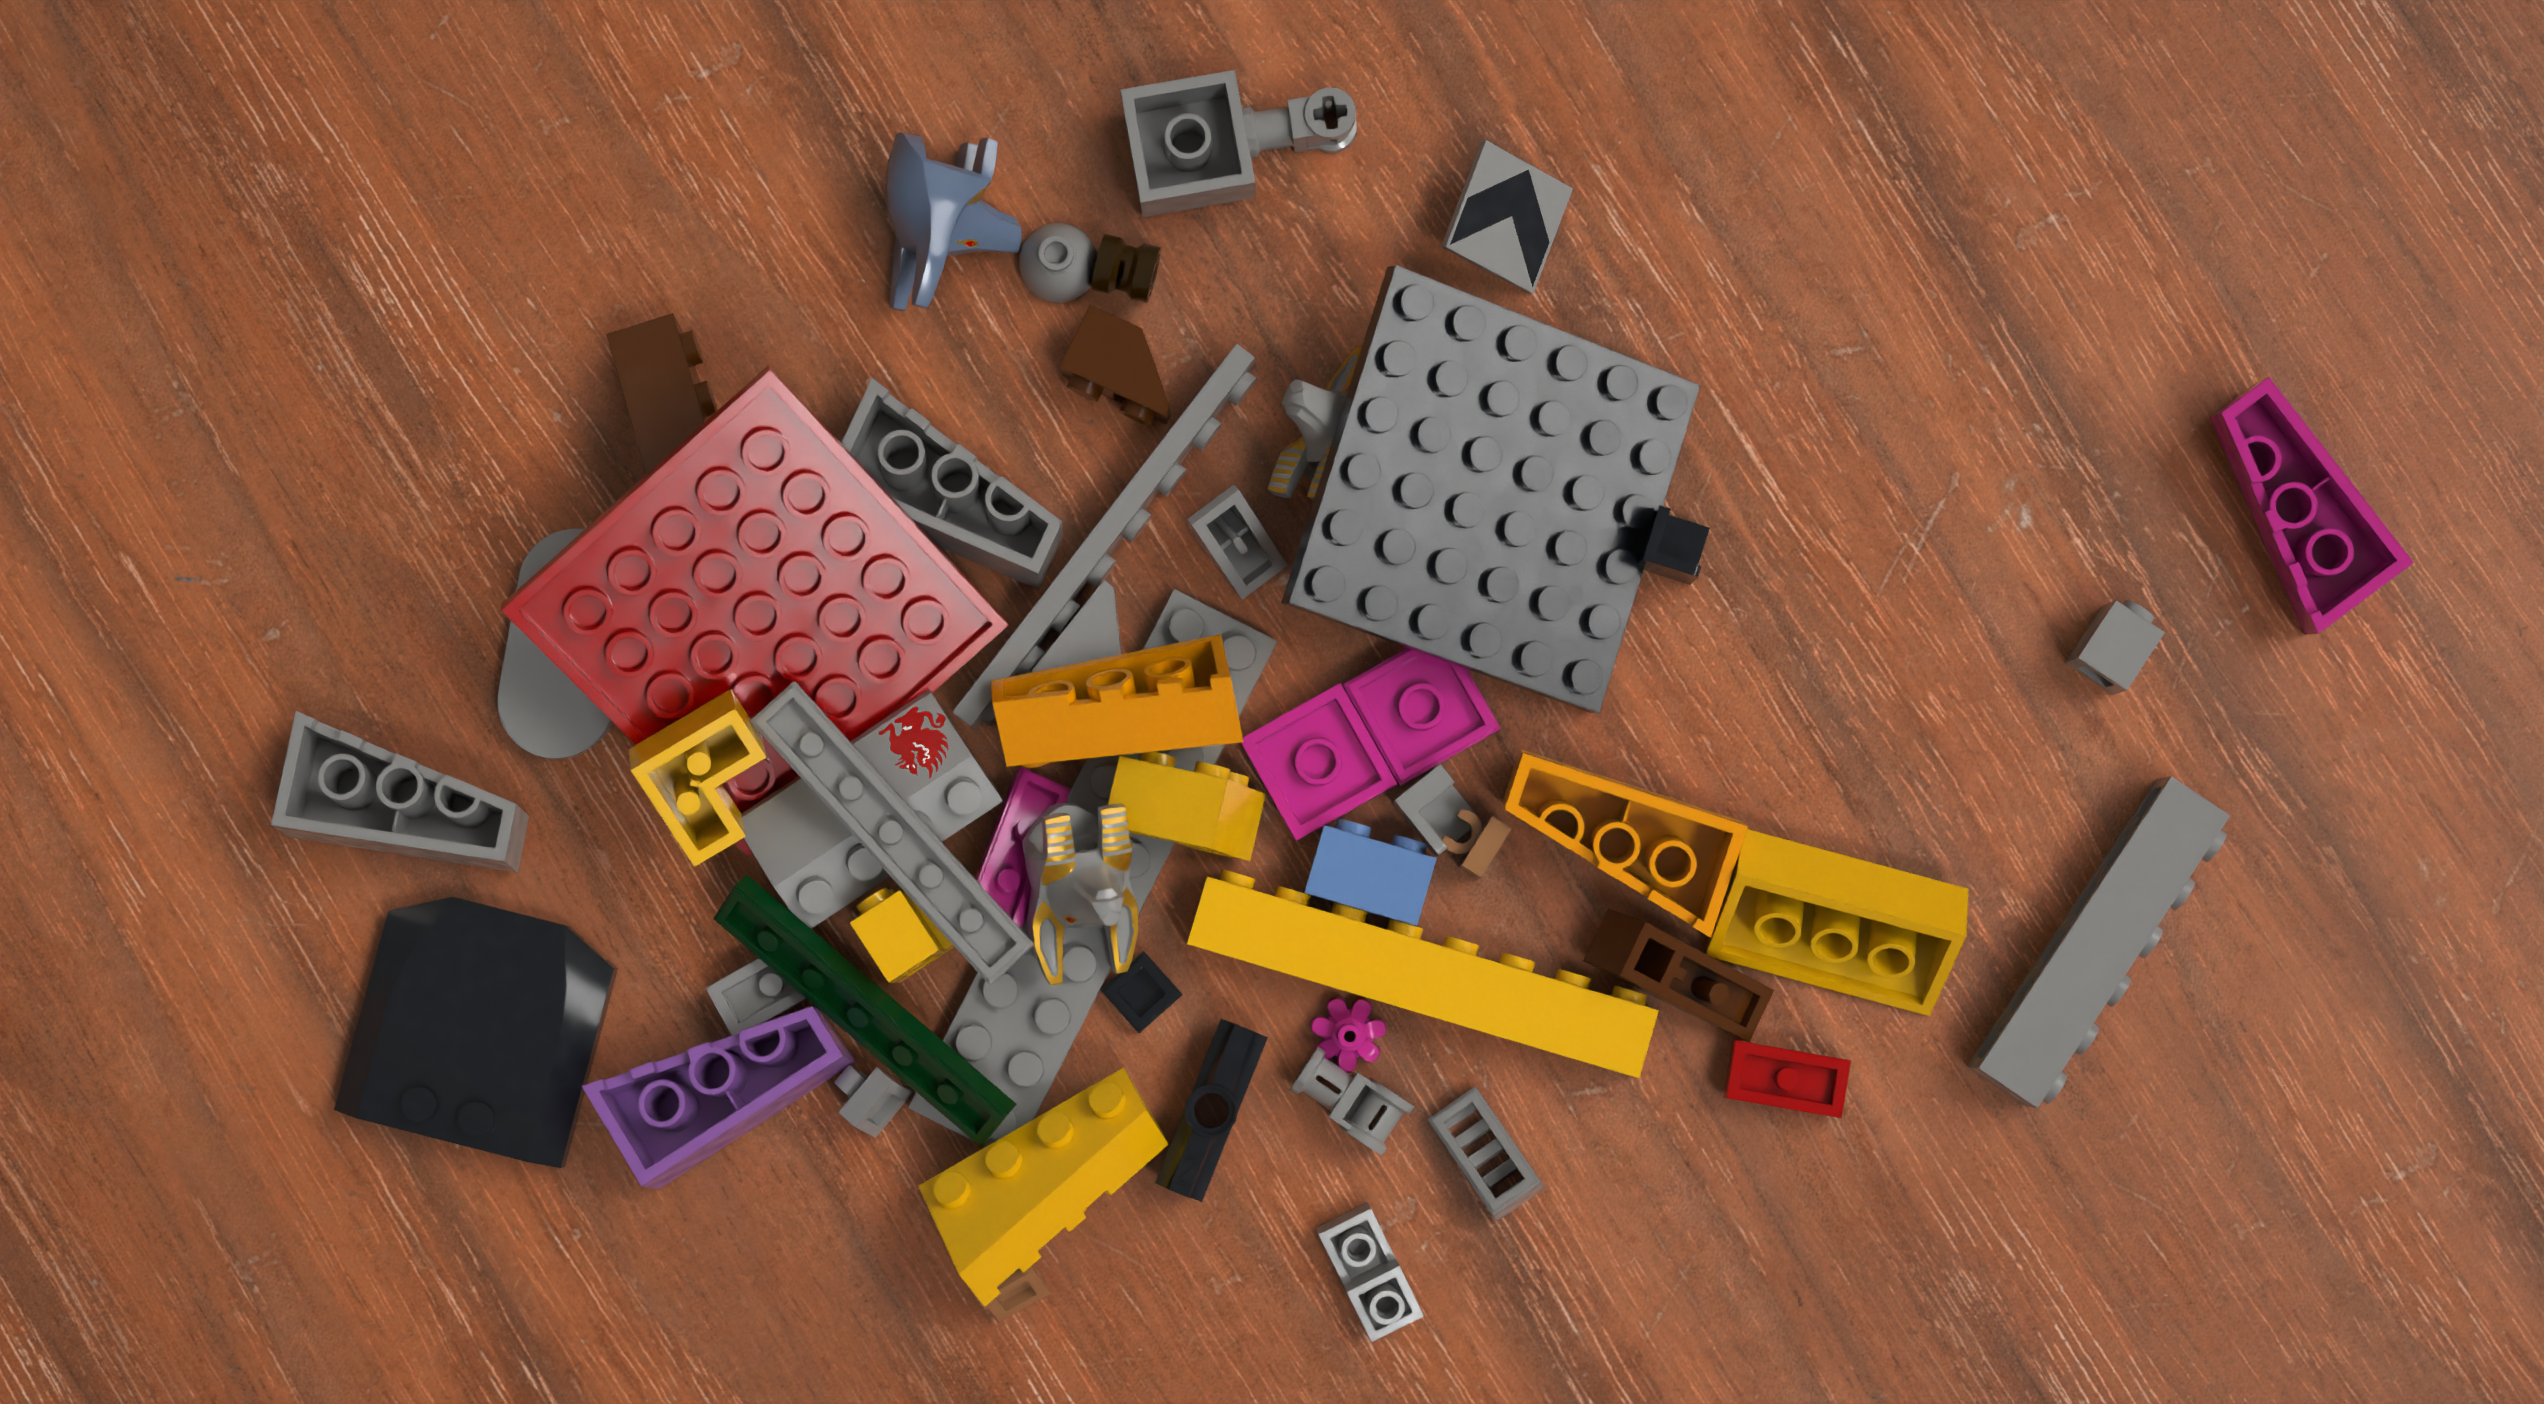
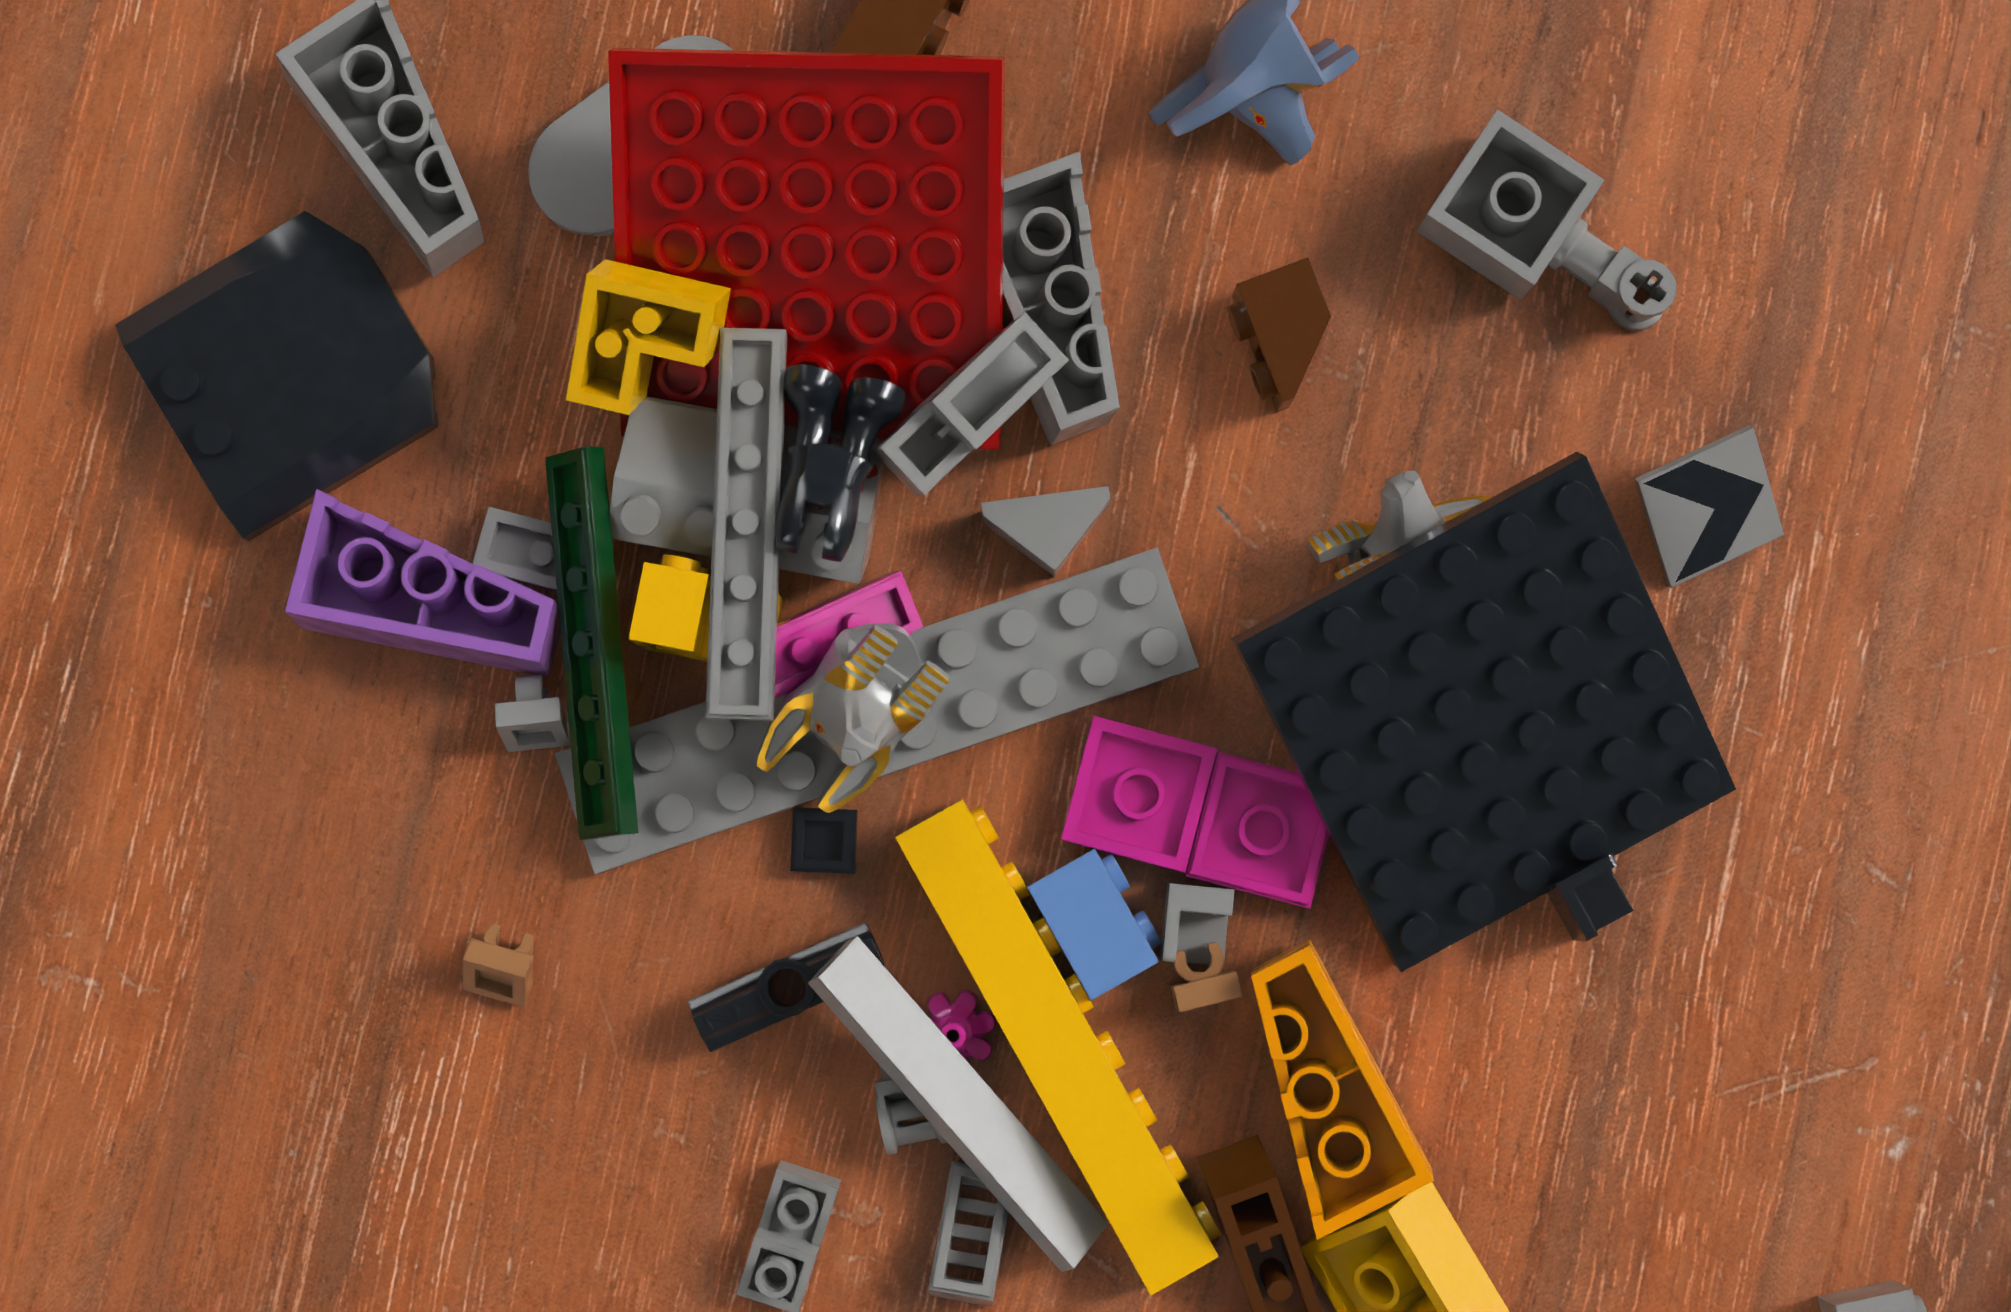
camera: 50 degrees right, 0 degrees up
(911, 749) = (825, 472): none -> black piece
(963, 614) = (970, 405): none -> light grey slope
(1039, 1180) = (598, 911): yellow wedge -> none
(1057, 262) = (1314, 203): light grey brick -> none
(1119, 705) = (1023, 596): light orange wedge -> none
(1123, 520) = (1170, 454): light grey plate -> none
(1138, 273) = (1371, 270): dark brown wheel -> none
(1196, 809) = (1006, 738): yellow brick -> none
(1236, 542) = (1242, 557): light grey slope -> none
(1395, 1076) = (958, 1103): none -> tile

